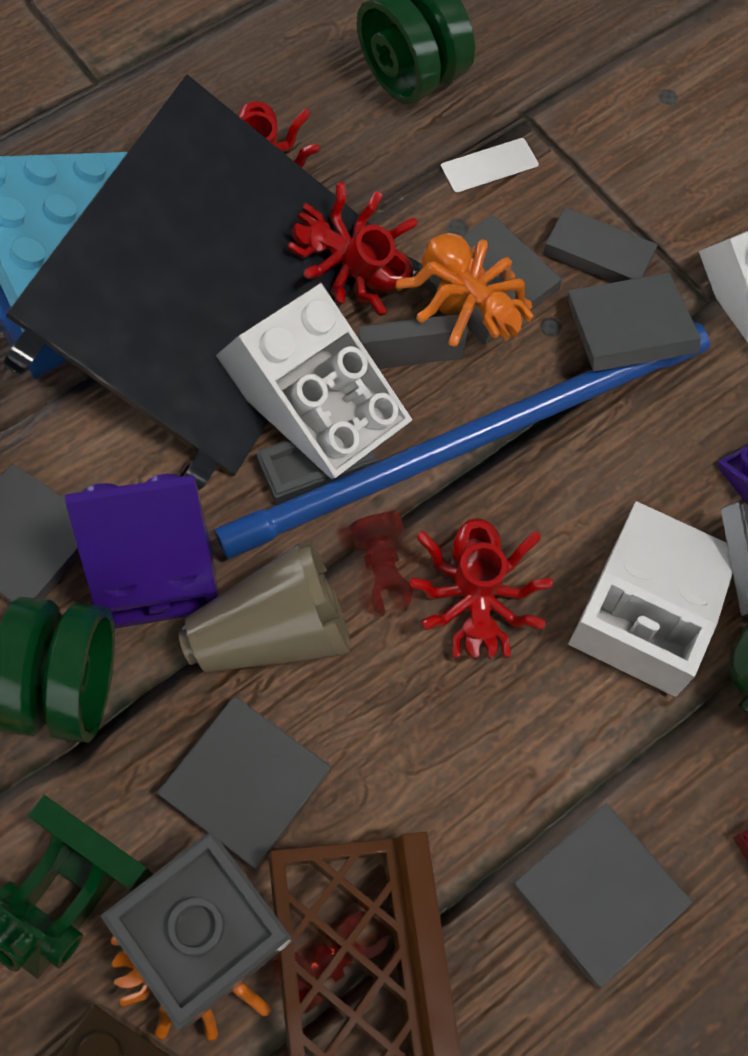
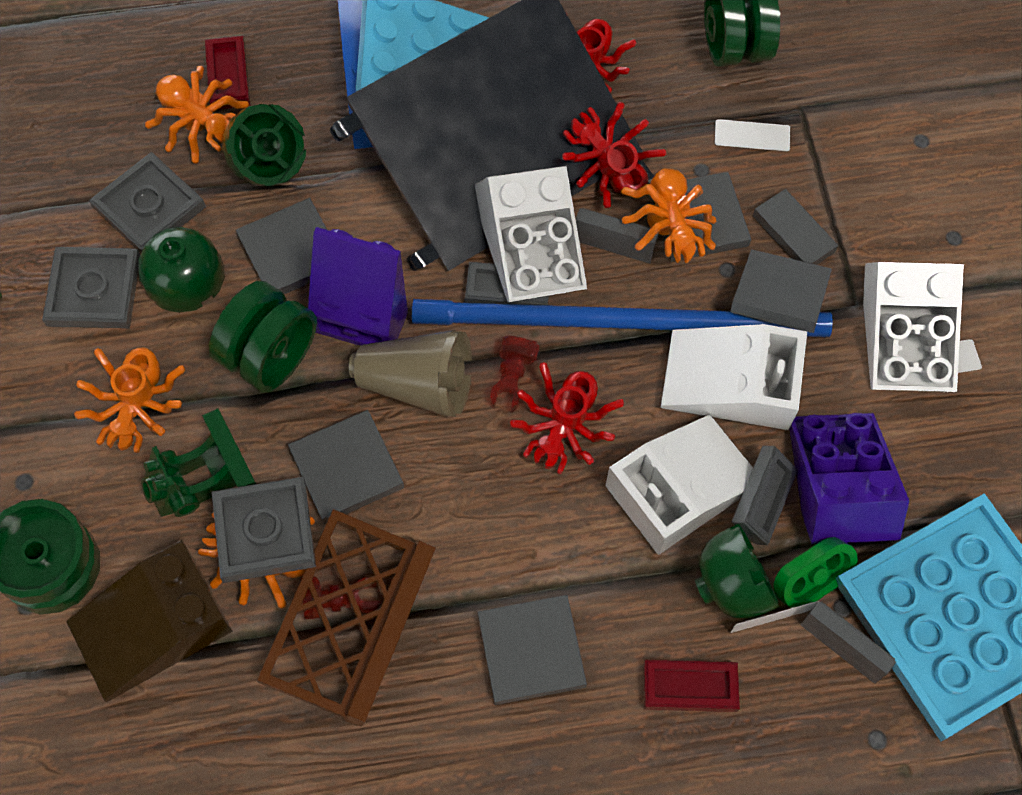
camera: 30 degrees right, 0 degrees up
(643, 438) = (736, 373): none -> white slope

